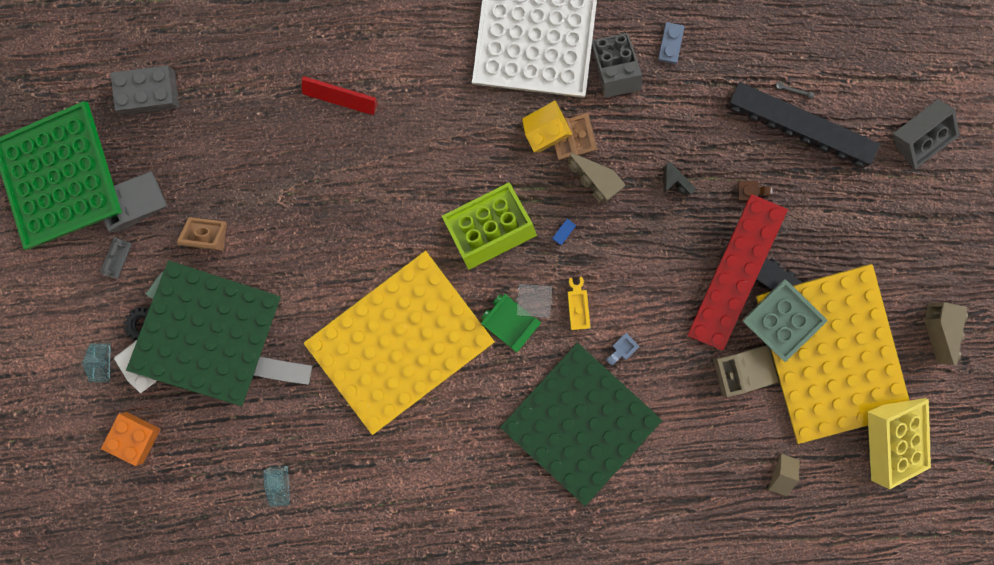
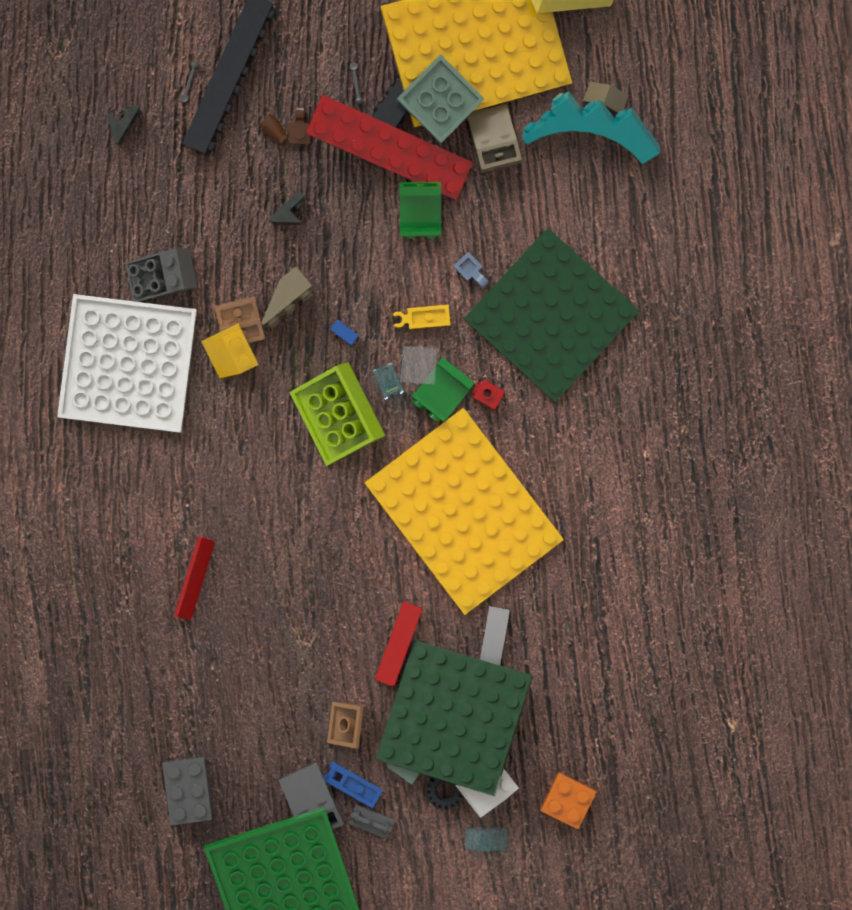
camera: 85 degrees left, 0 degrees up
(149, 240) = (353, 785): none -> blue plate
(277, 282) = (398, 643): none -> red slope
(277, 485) = (619, 641): clear light blue slope -> none
(507, 364) = (487, 394): none -> red brick
(519, 272) = (388, 381): none -> clear light blue slope
(671, 43) = (137, 215): sand blue plate -> none
(678, 301) = (420, 209): none -> green panel
(751, 28) = (121, 128): none -> pearl dark grey slope
(752, 166) = (273, 128): none -> reddish brown cone
(766, 467) = (595, 118): none -> teal arch
(810, 240) = (353, 67): none -> dark grey hinge

